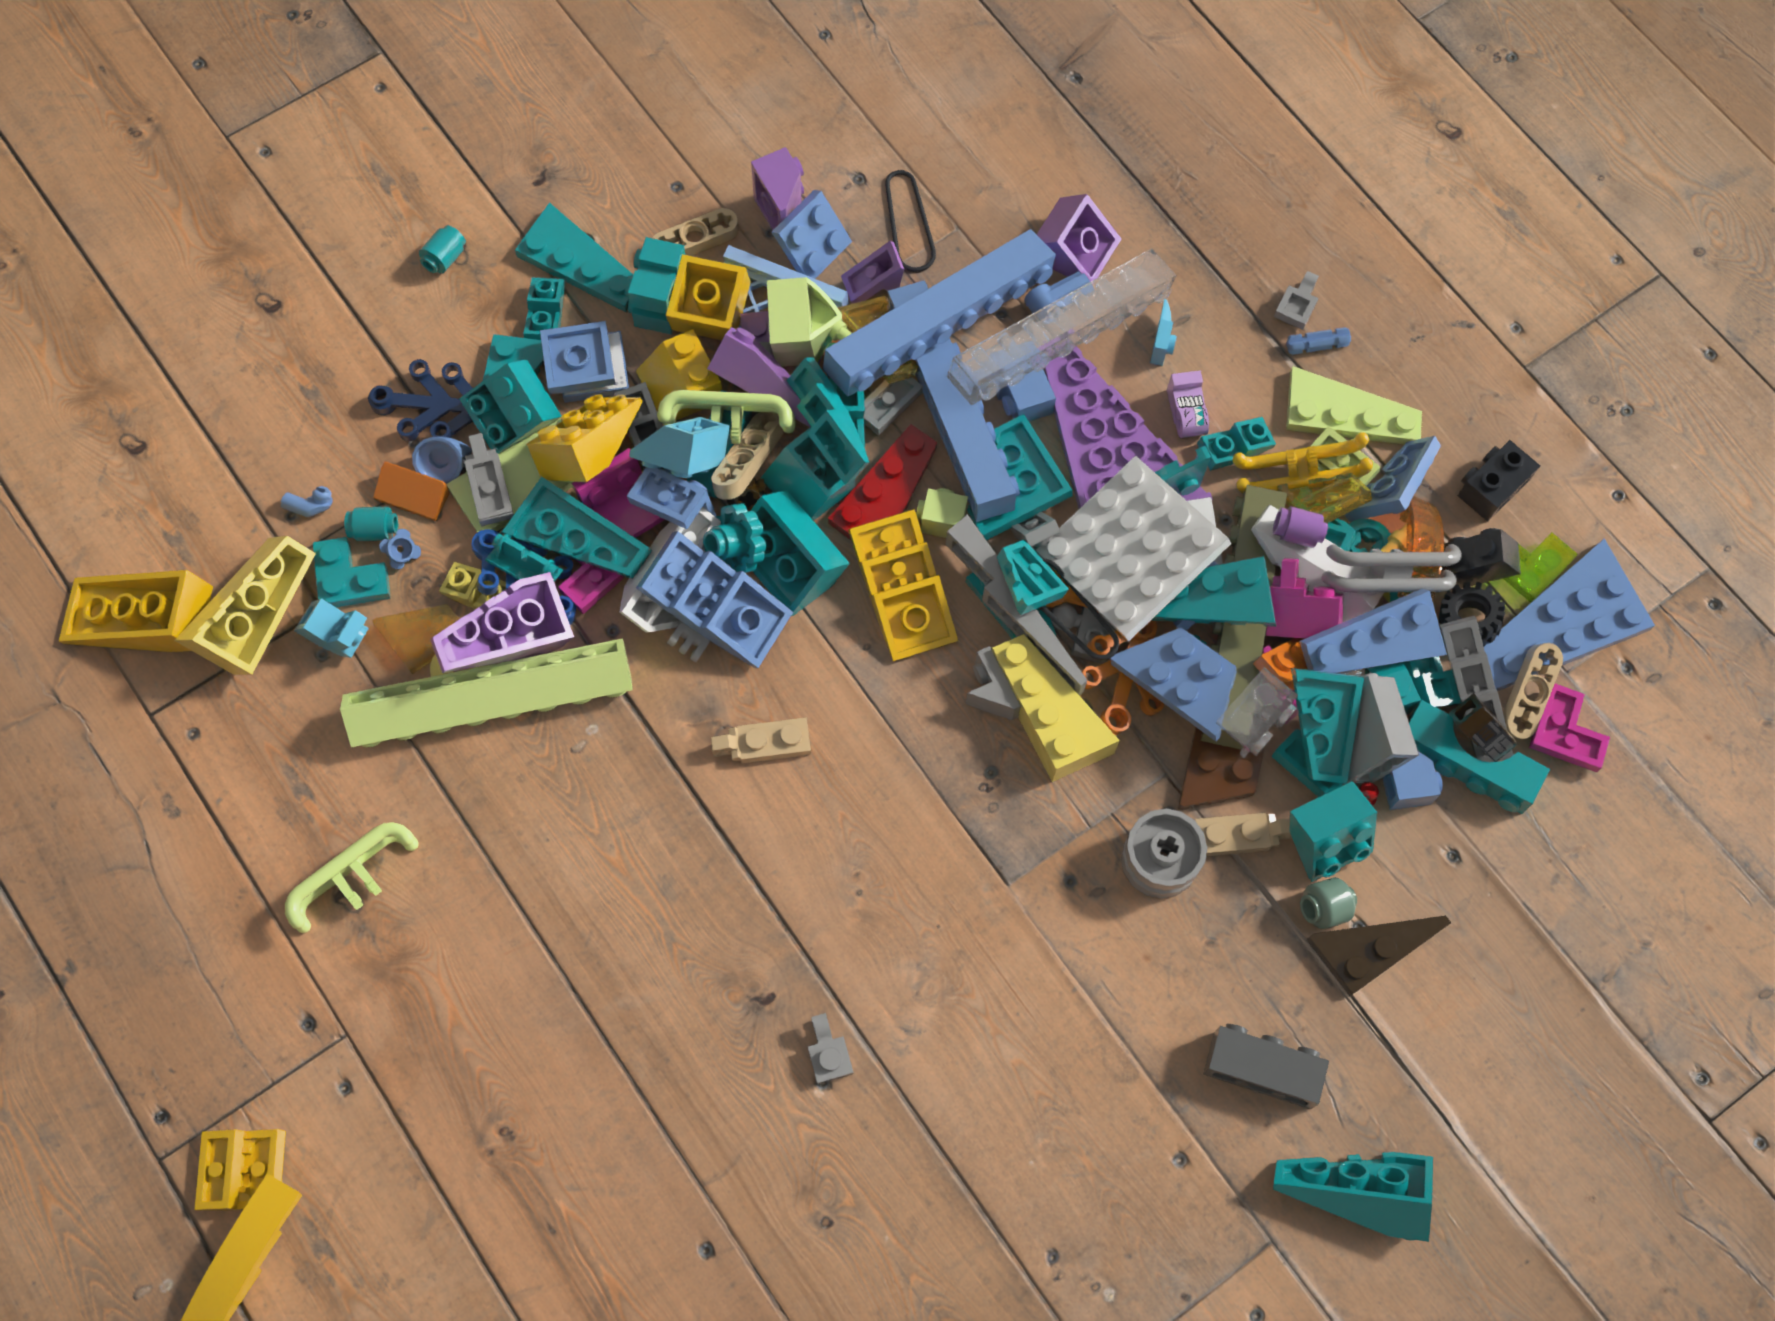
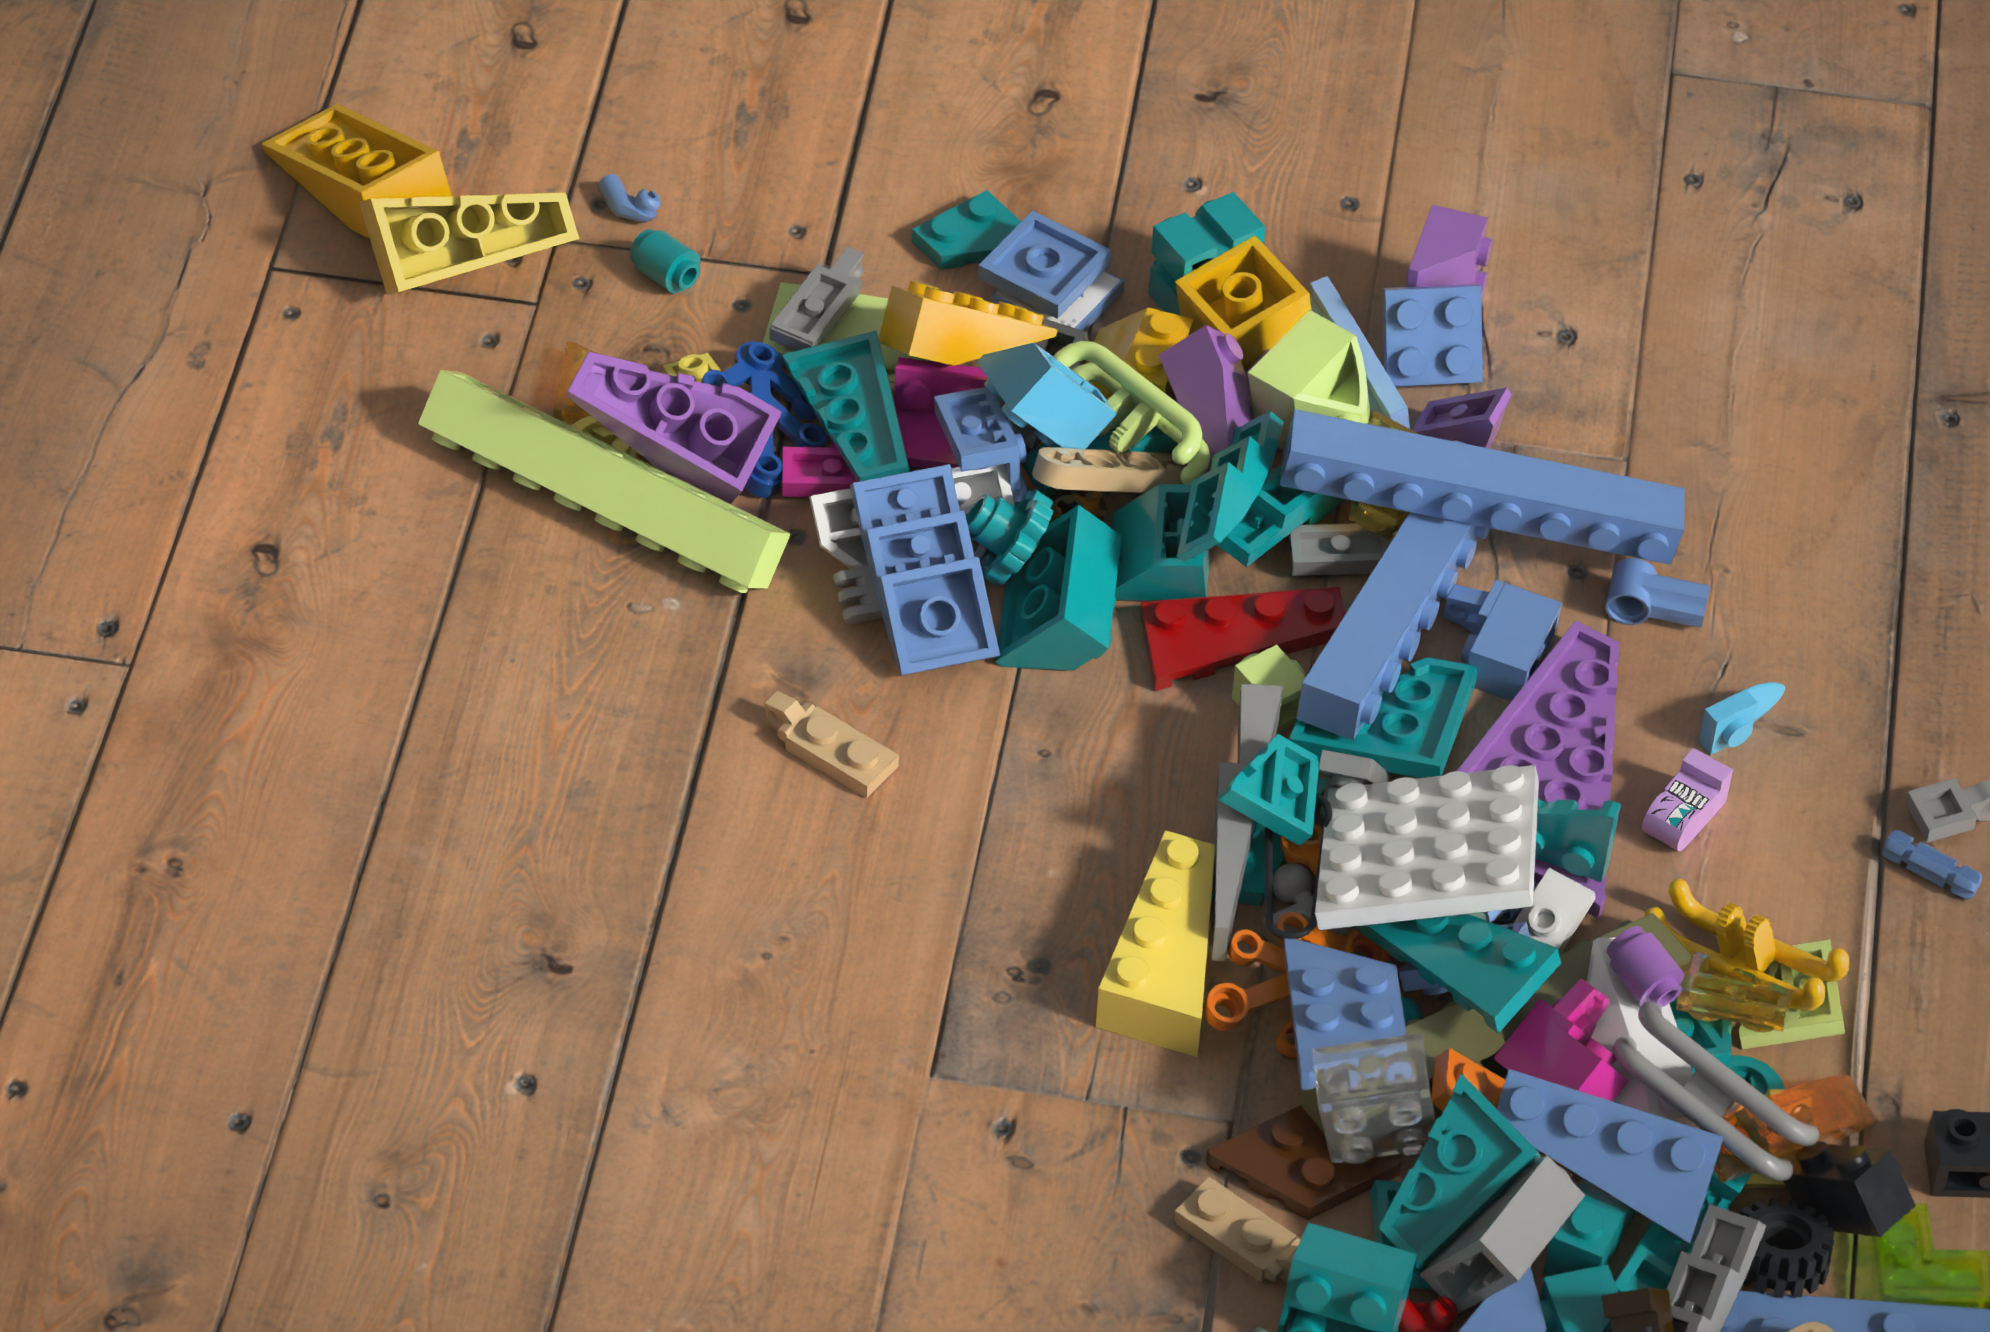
camera: 45 degrees right, 20 degrees down
(332, 628) = (521, 315): medium azure brick -> none
(341, 582) = (583, 292): teal plate -> none
(342, 865) = (290, 516): yellowish green piece -> none
(403, 539) = (659, 292): medium blue plate -> none
(411, 491) = (739, 264): orange slope -> none
(435, 405) = (892, 243): dark blue plant -> none
(440, 458) = (795, 249): medium blue piece -> none
(442, 249) = (1023, 80): teal brick -> none
(510, 405) = (923, 243): teal slope -> none
(518, 560) = (767, 381): teal hinge -> none
(544, 306) = (1075, 201): teal slope -> none
(571, 255) = (1152, 173): teal wing -> none
(700, 224) = (1345, 253): tan beam -> none
(830, 1055) = (562, 1060): light grey plate -> none
(903, 585) = (1147, 718): yellow slope -> none
(923, 215) = (1557, 397): black piece -> none
(997, 694) = (1118, 882): light grey slope -> none
(1060, 327) = (1616, 607): clear brick -> none
(1079, 236) = (1747, 558): medium lavender slope -> none
(1168, 833) = (1128, 1168): light grey wheel -> none
(1245, 437) = (1708, 884): teal slope -> none
(1322, 402) = (1885, 958): yellowish green wing -> none
(1401, 479) = (1862, 1056): medium blue wing -> none

